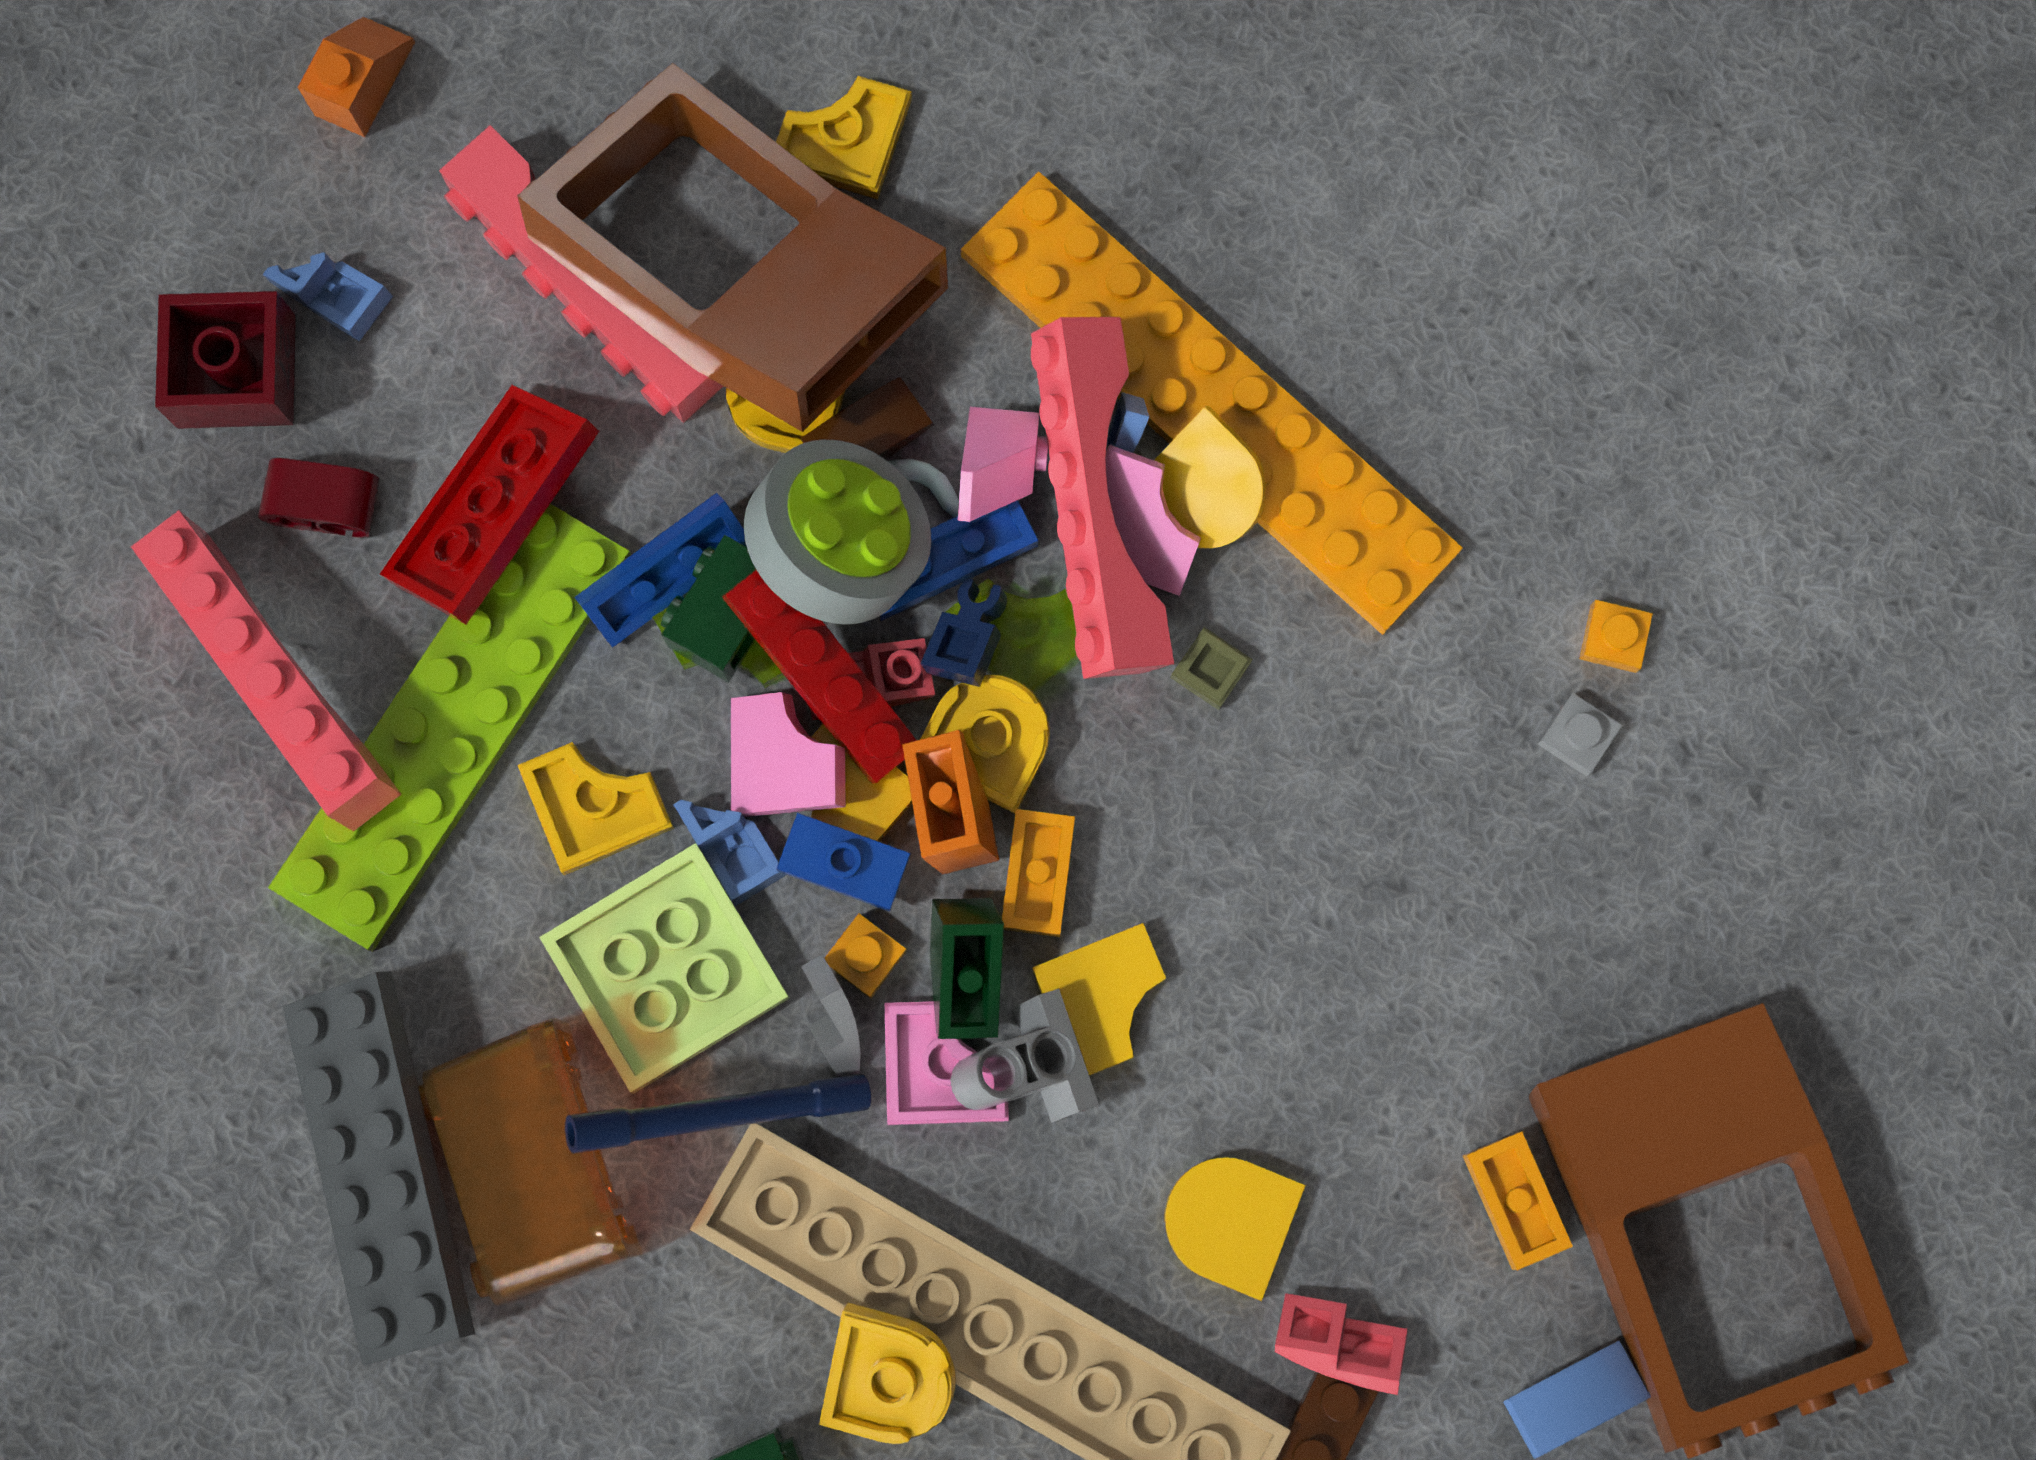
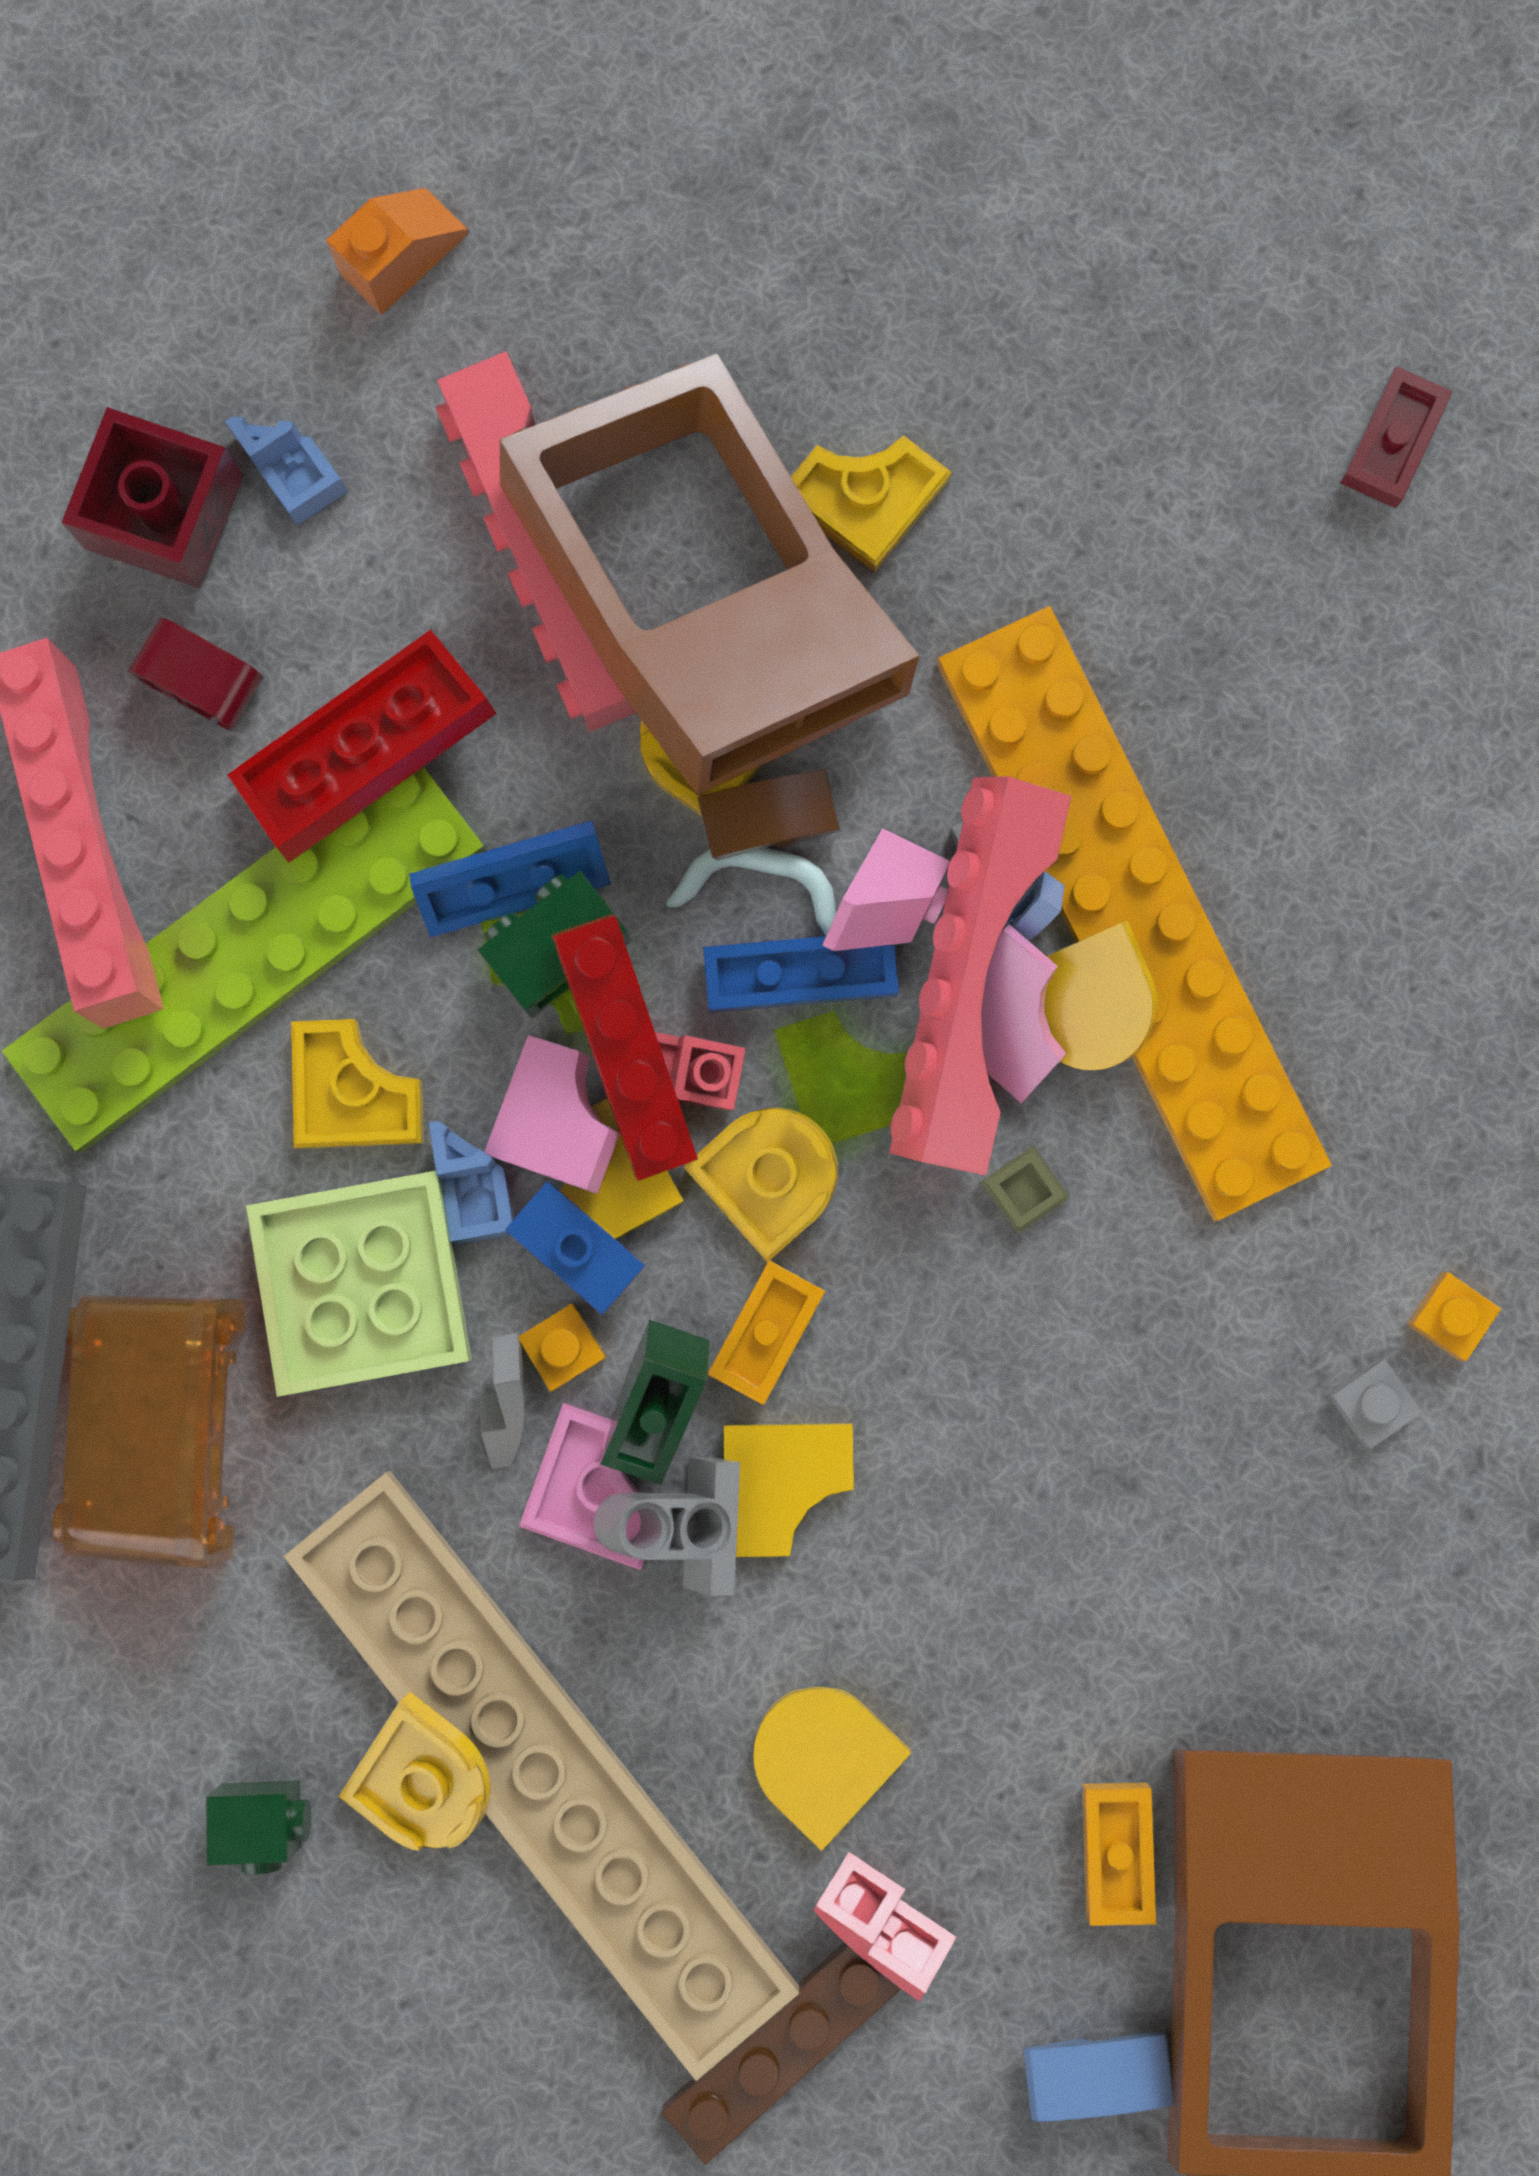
camera: 25 degrees right, 5 degrees up
(622, 1126) = (246, 1441): dark blue piece -> none
(837, 532) = (693, 913): wheel -> none
(949, 804) = (702, 1230): orange slope -> none
(966, 641) = (783, 1071): dark blue plate -> none

